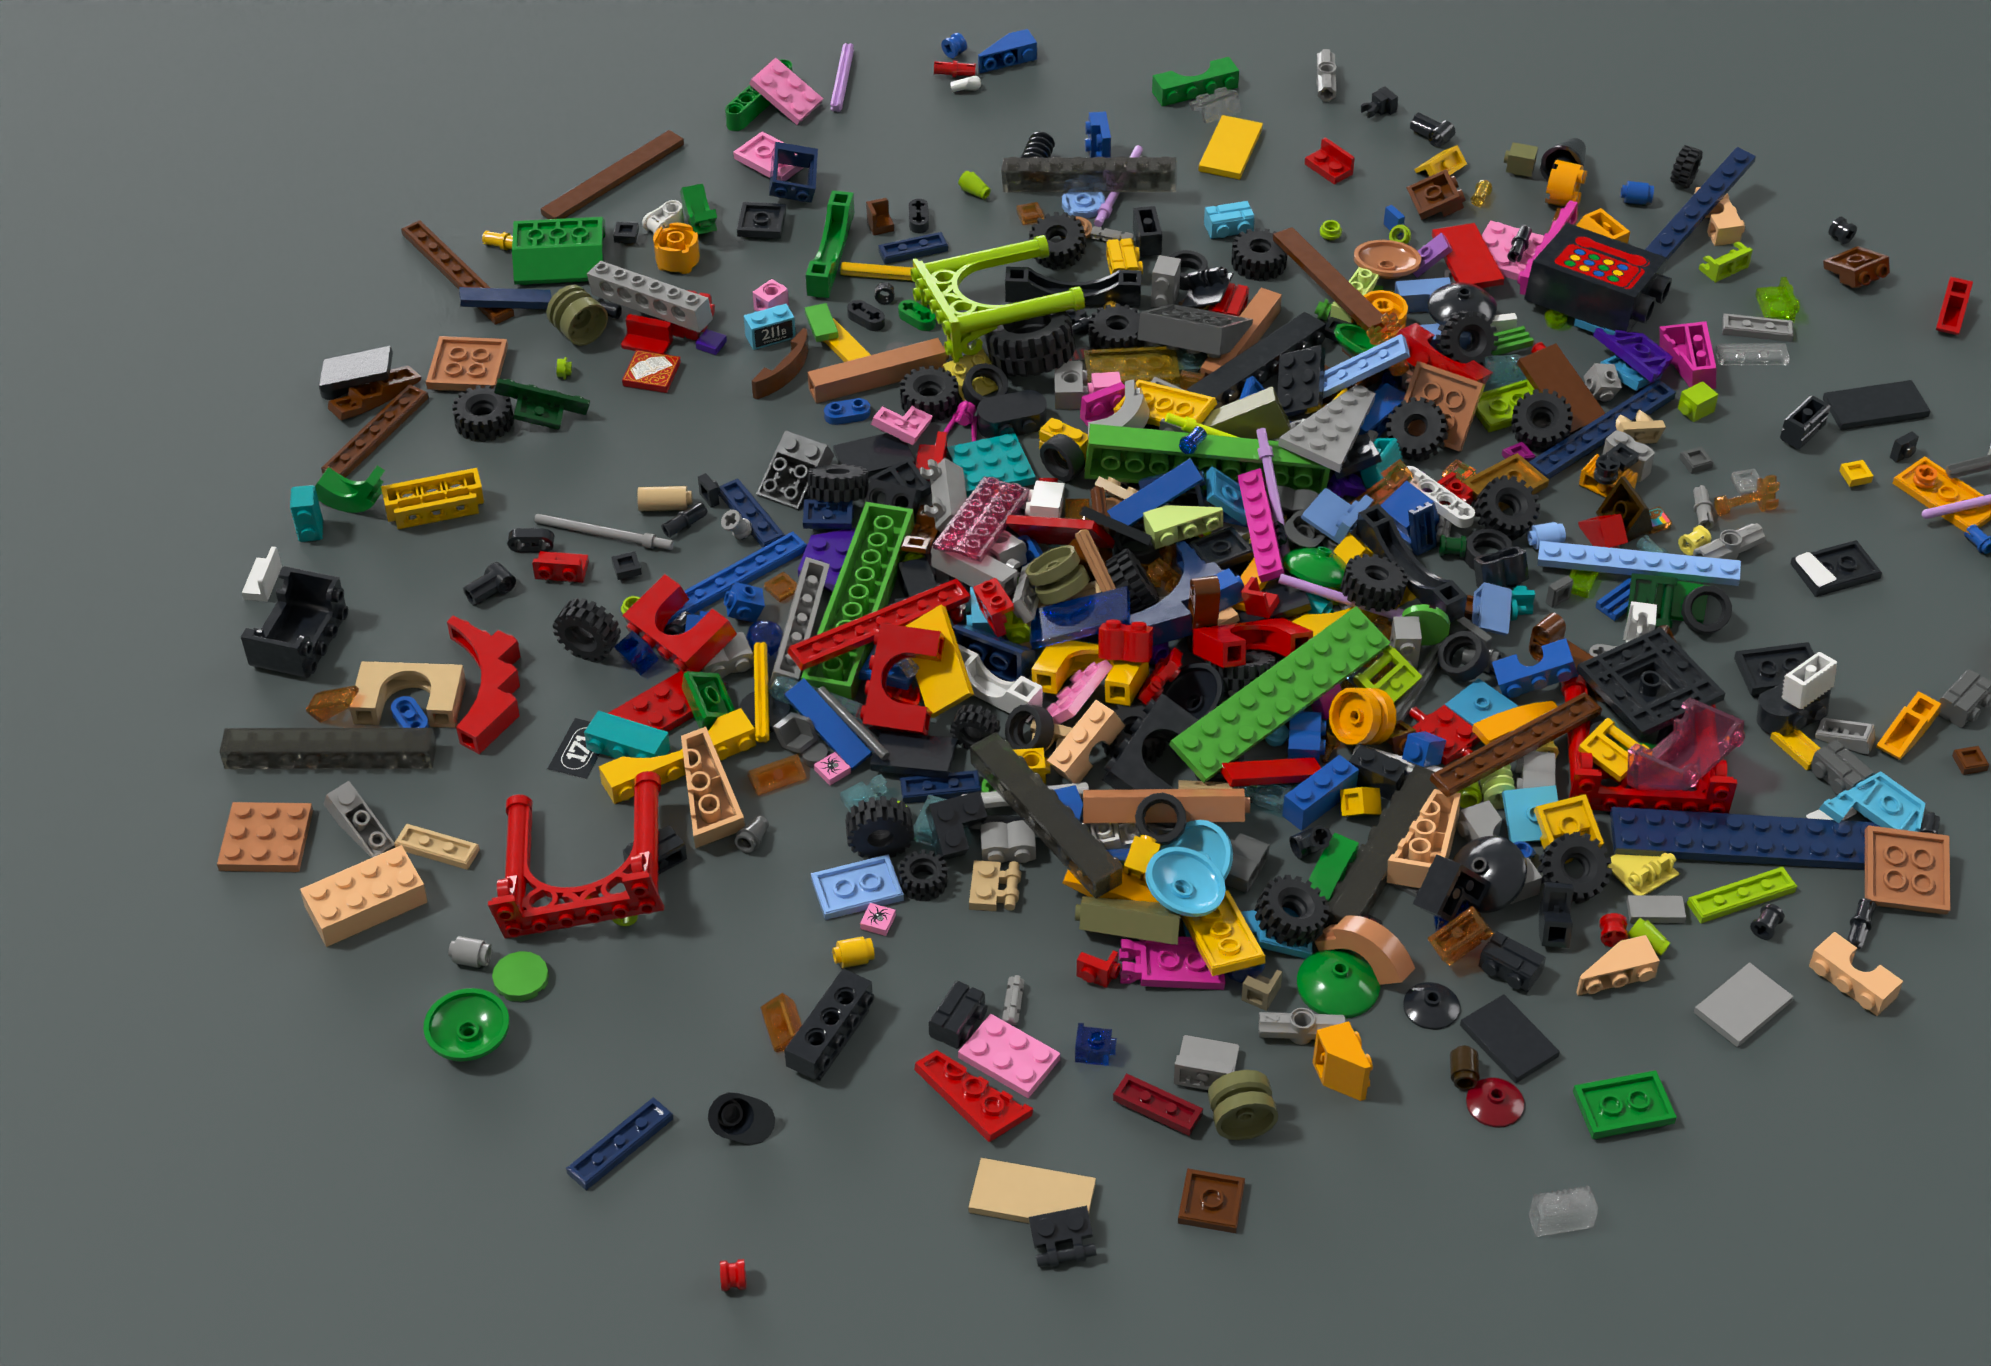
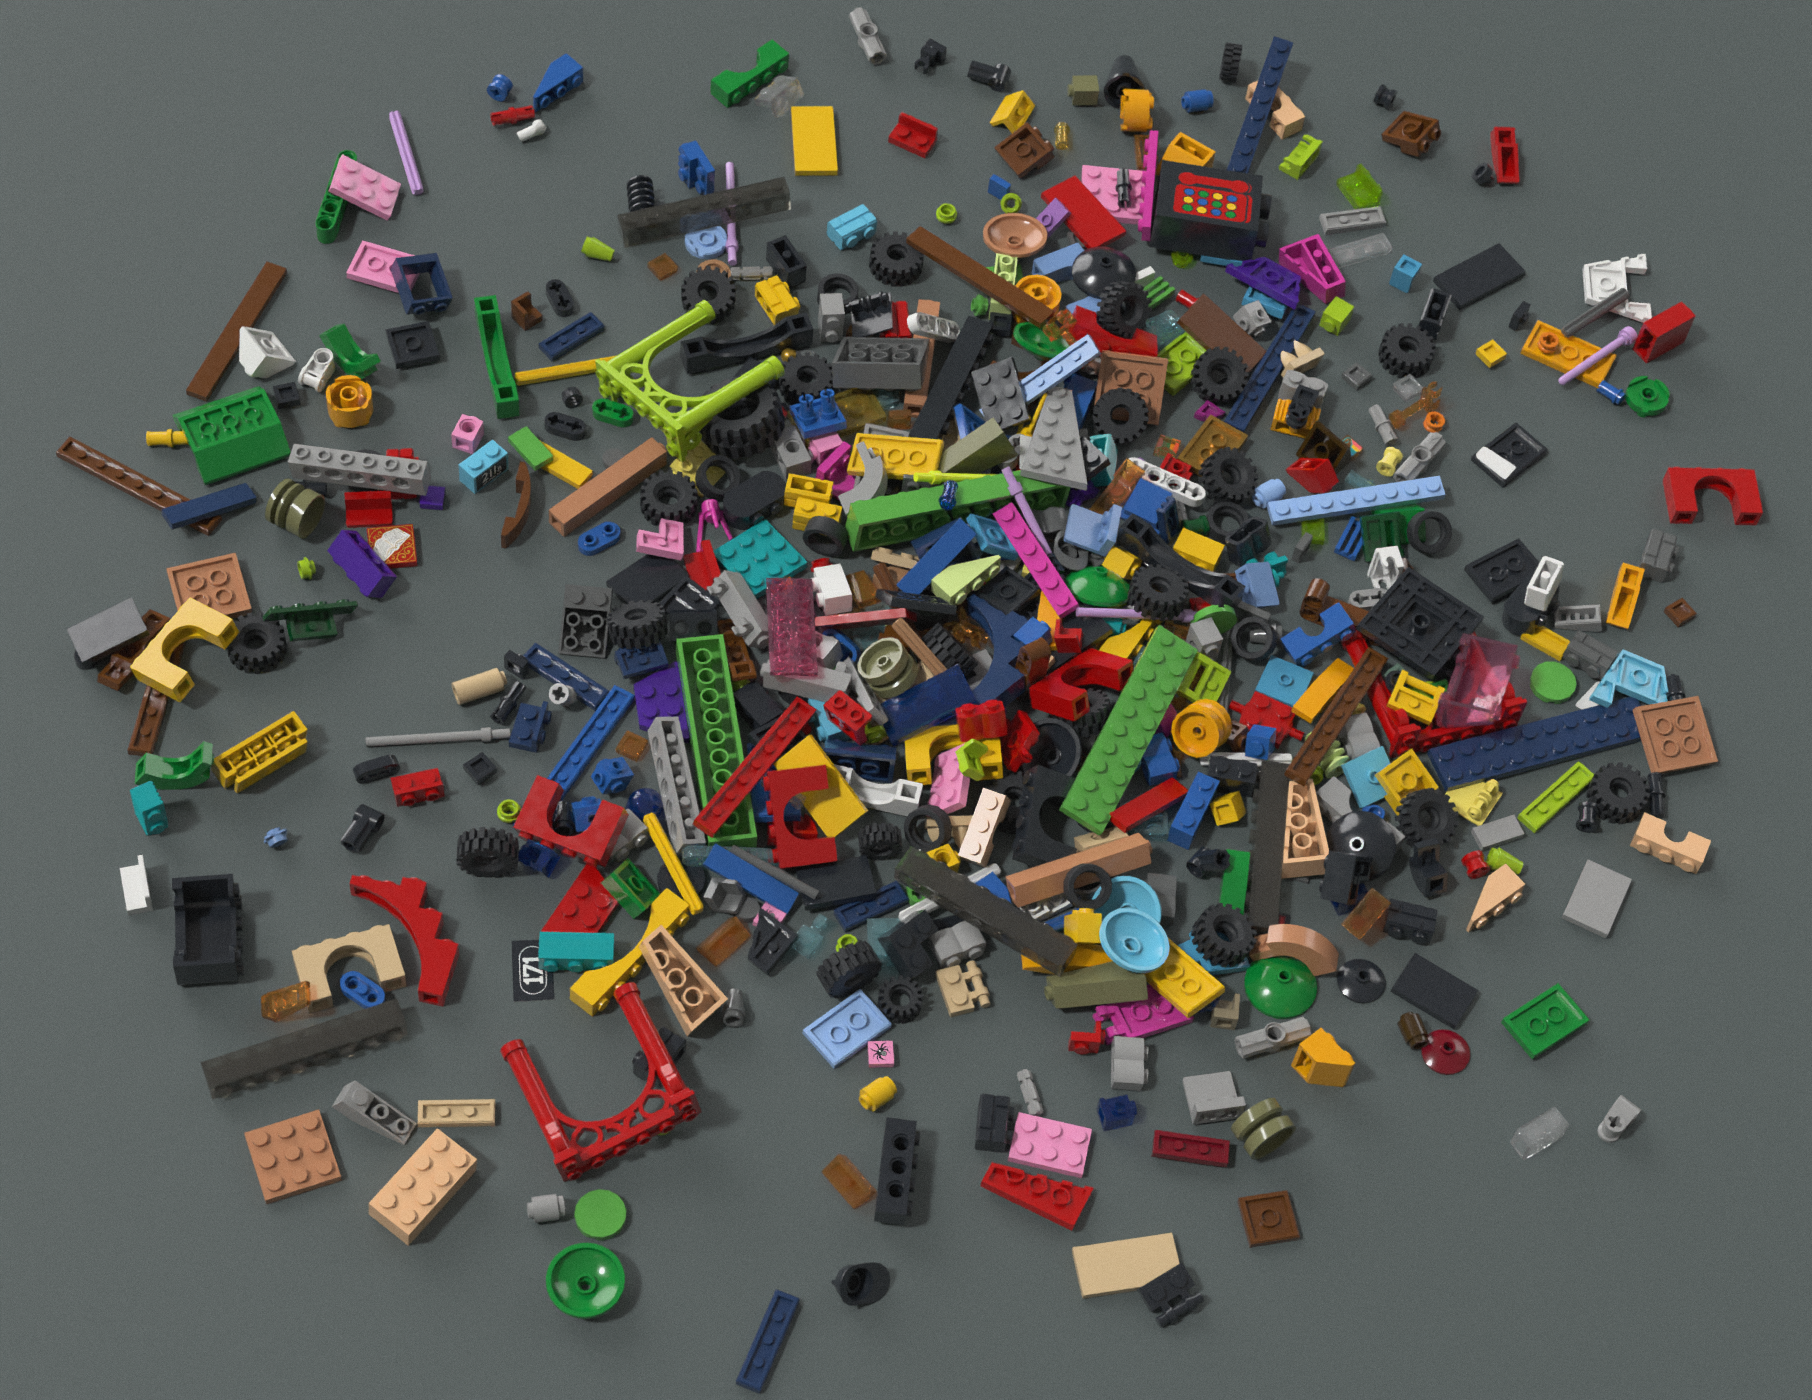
camera: 30 degrees left, 10 degrees up
(407, 570) = (276, 837): none -> medium blue plate
(429, 378) = (190, 622): none -> yellow arch
(612, 374) = (361, 564): none -> dark purple brick
(623, 195) = (262, 353): none -> white slope
(693, 545) = (529, 727): none -> dark blue bracket
(818, 787) = (770, 942): none -> black wing
(1065, 412) = (807, 488): none -> yellow brick
(1096, 671) = (969, 760): none -> lime bracket
(1107, 357) = (818, 415): none -> blue plate
(1130, 1003) = (1128, 1063): none -> light grey brick
(1242, 296) = (933, 327): none -> white beam
(1445, 563) = (1199, 549): none -> yellow brick
(1666, 1228) = (1617, 1119): none -> light grey piece
(1765, 514) = (1433, 427): none -> orange bush
(1768, 460) = (1403, 362): none -> black tyre
(1787, 786) = (1552, 682): none -> bright green tile
(1788, 379) = (1404, 273): none -> dark azure panel
(1809, 922) = (1611, 805): none -> black tyre
(1921, 317) = (1483, 174): none -> black tile

